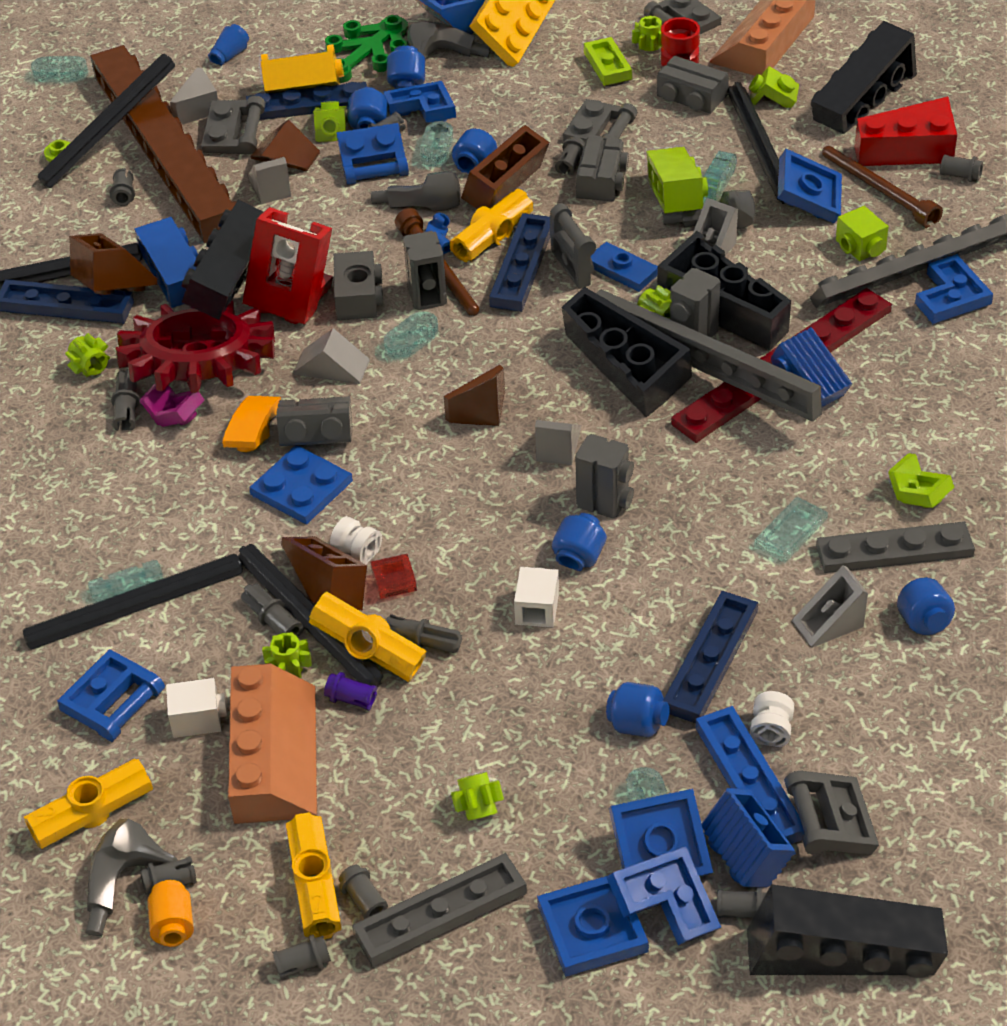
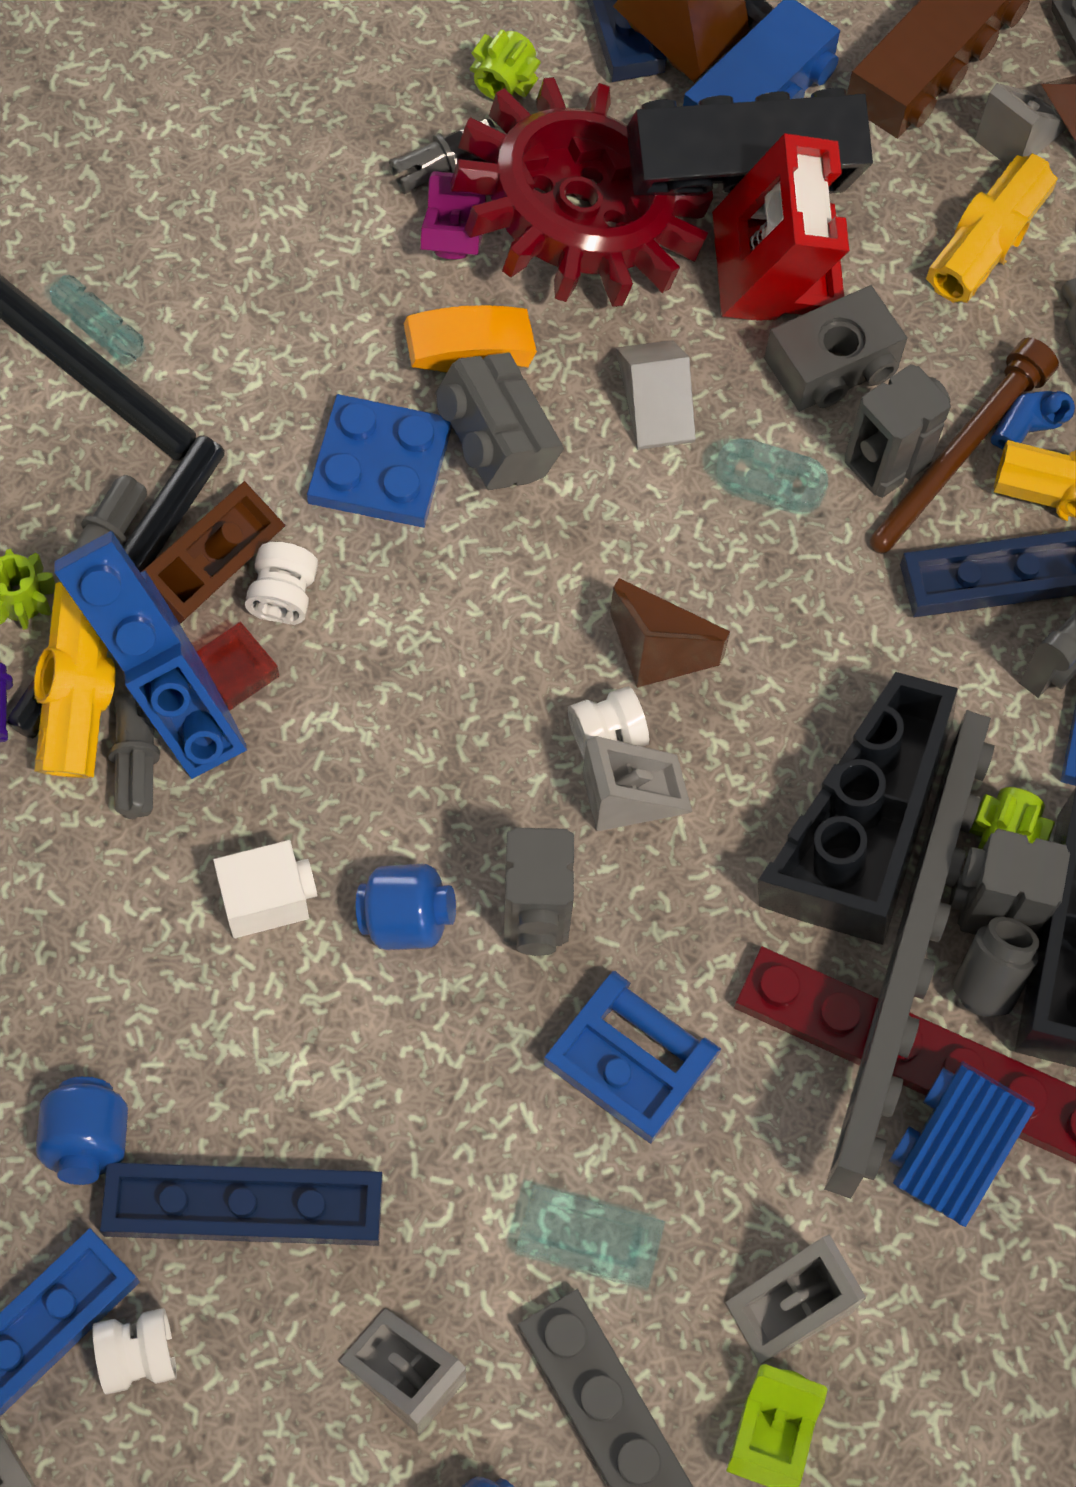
camera: 60 degrees right, 20 degrees up
(323, 208) = (991, 227): none -> yellow piece
(382, 587) = (153, 653): none -> blue slope
(518, 434) = (615, 718): none -> white wheel
(717, 486) = (620, 1072): none -> blue plate
(729, 327) = (996, 967): none -> dark grey brick
(859, 453) = (796, 1300): none -> light grey slope

